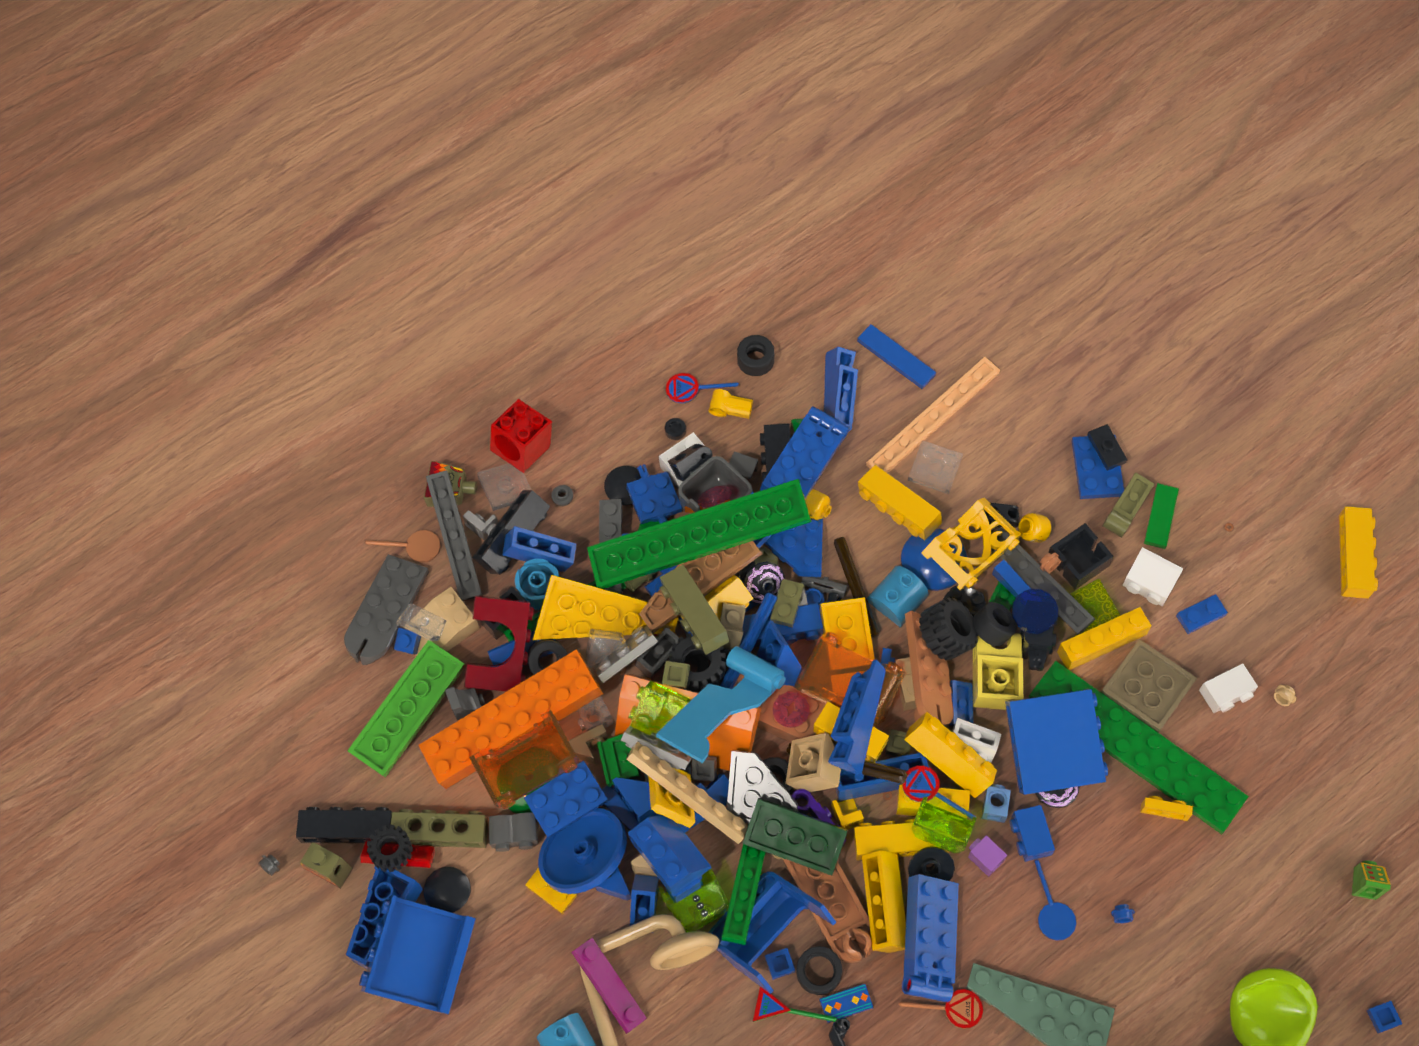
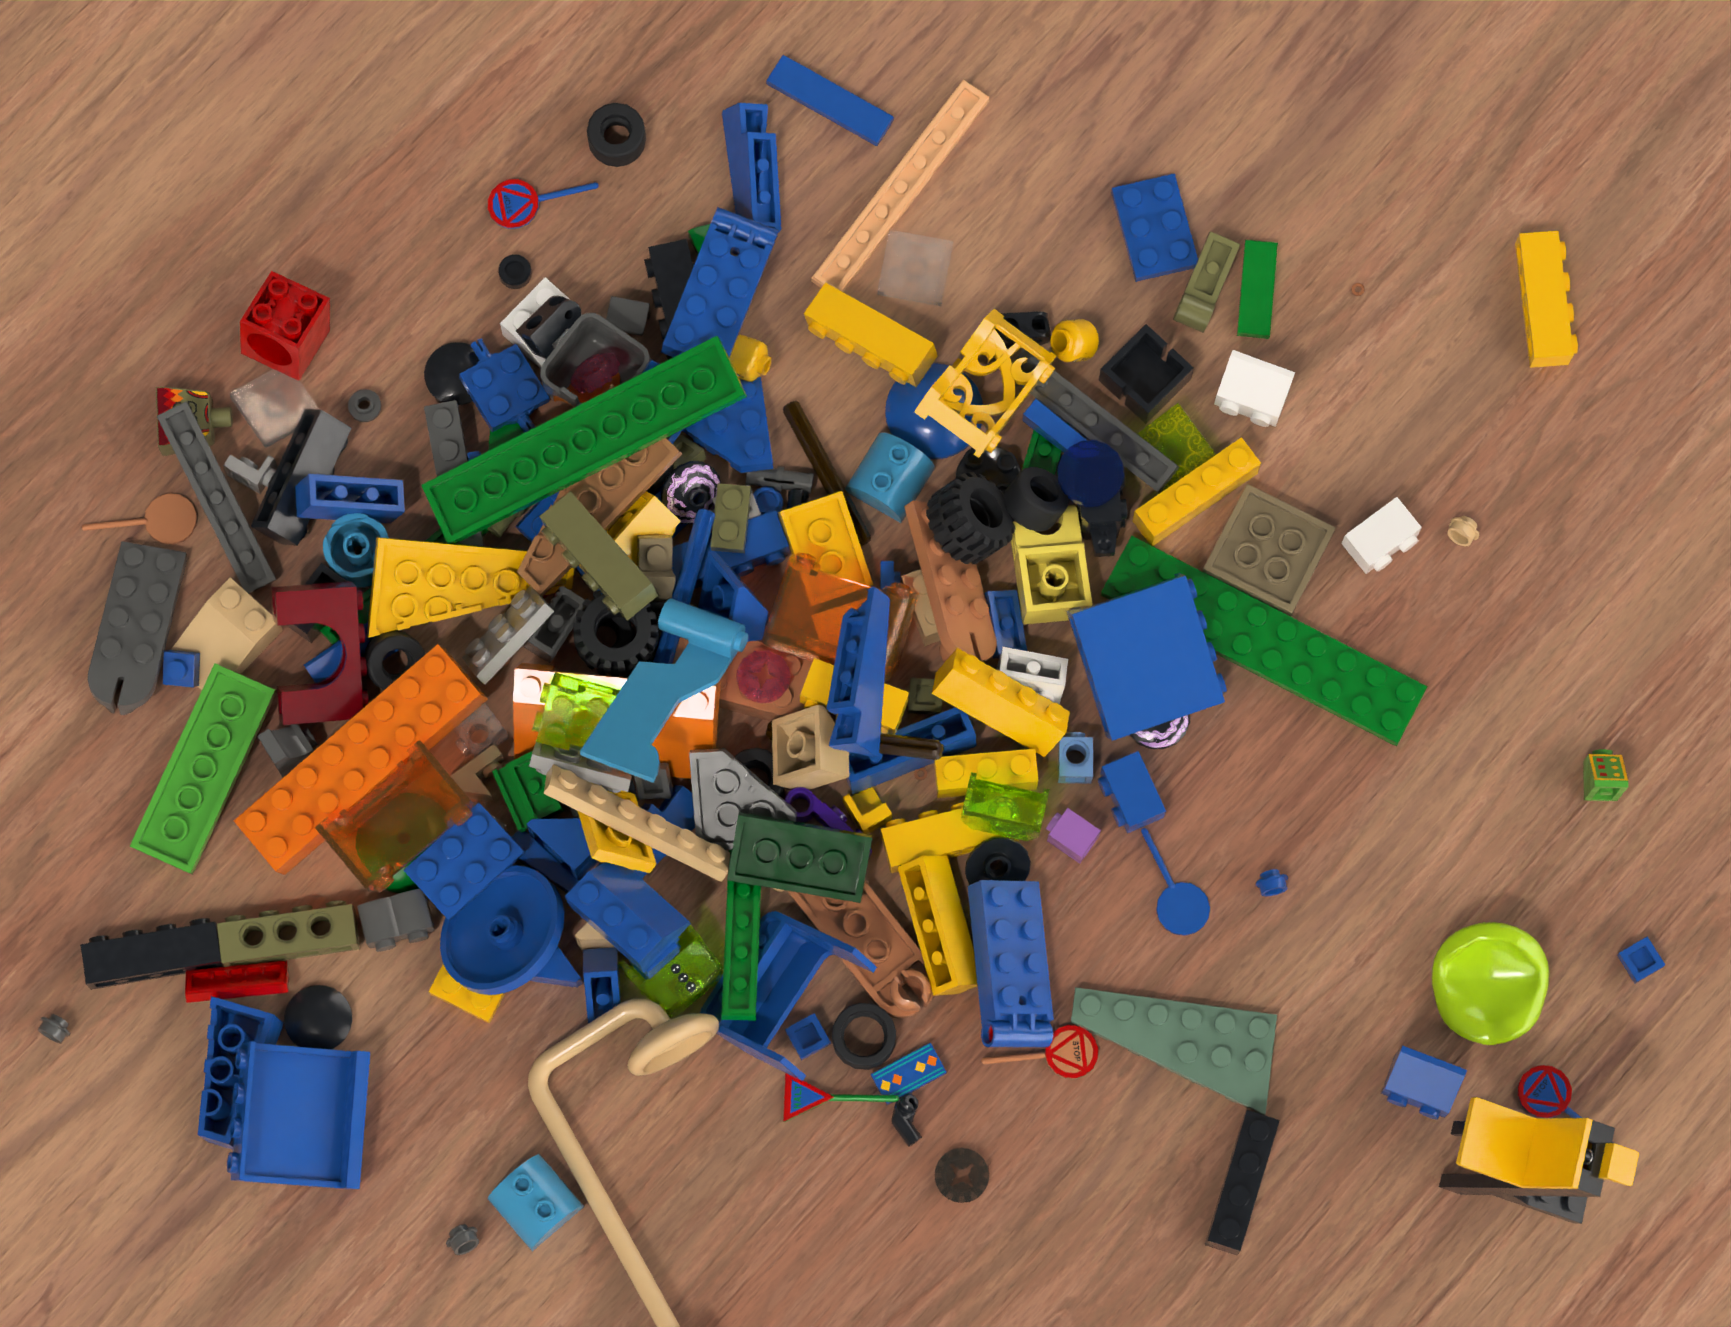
camera: 15 degrees left, 10 degrees up
(323, 864) = (137, 1015): olive torso -> none
(395, 859) = (227, 995): black tyre -> none
(422, 622) = (198, 639): clear slope -> none
(601, 644) = (471, 627): clear slope -> none
(609, 985) = (575, 1109): magenta plate -> none
(676, 674) = (589, 656): olive plate -> none
(725, 404) = (582, 220): yellow piece -> none
(924, 782) = (970, 751): piece -> none
(1050, 562) = (1103, 393): nougat plate -> none
(1107, 447) = (1164, 197): black plate -> none
(1176, 809) = (1327, 724): yellow plate -> none
(1201, 614) = (1332, 429): blue plate -> none

